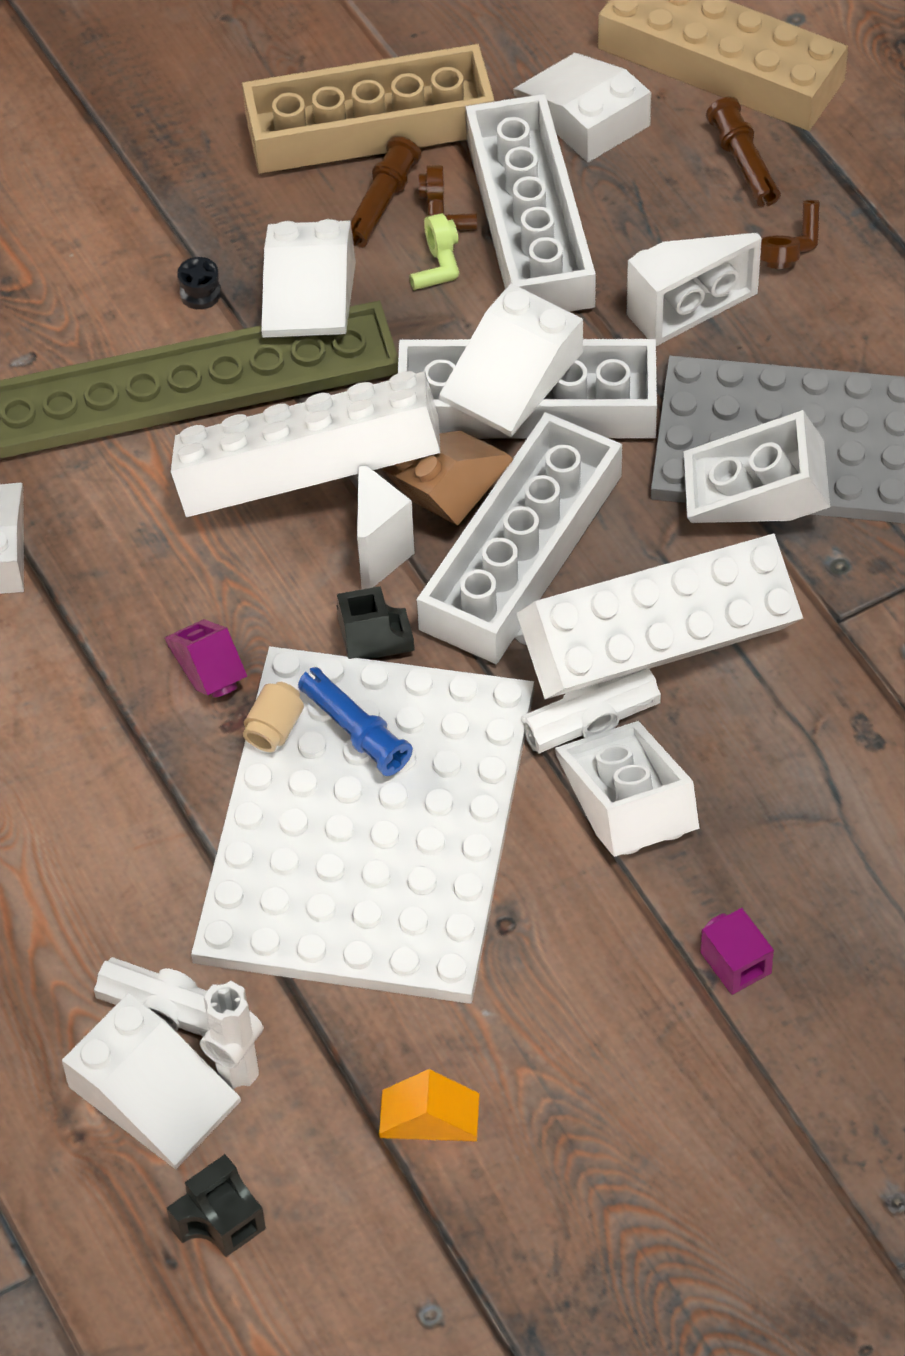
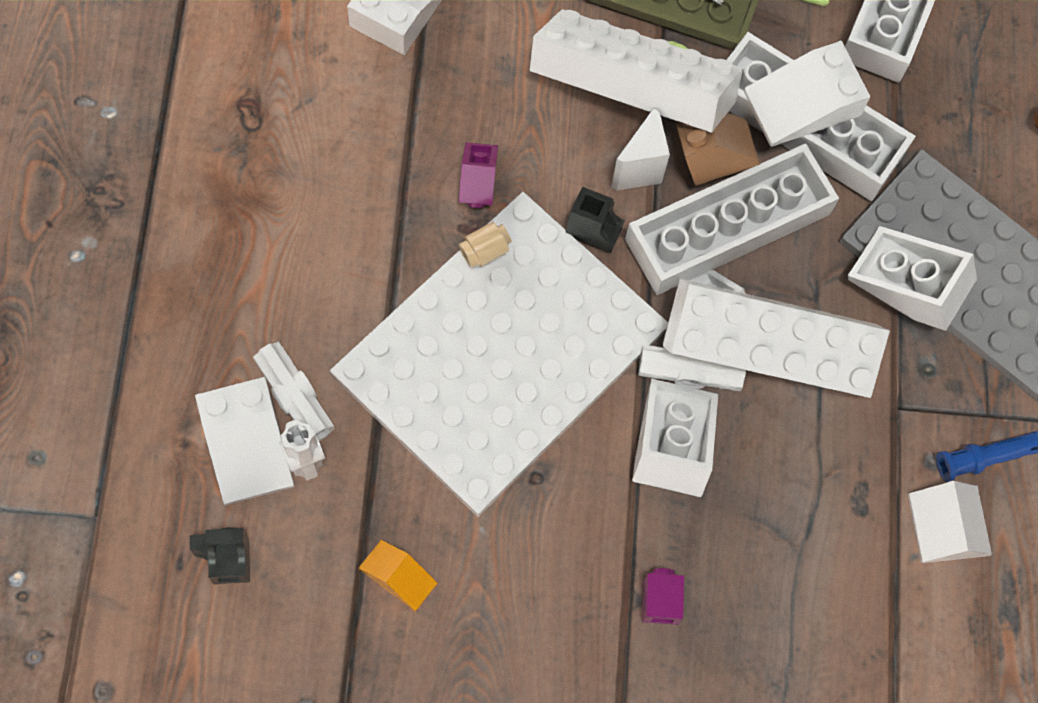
camera: 25 degrees right, 15 degrees up
(367, 732) = (535, 295): blue pin -> none
(690, 282) = (970, 106): white slope -> none

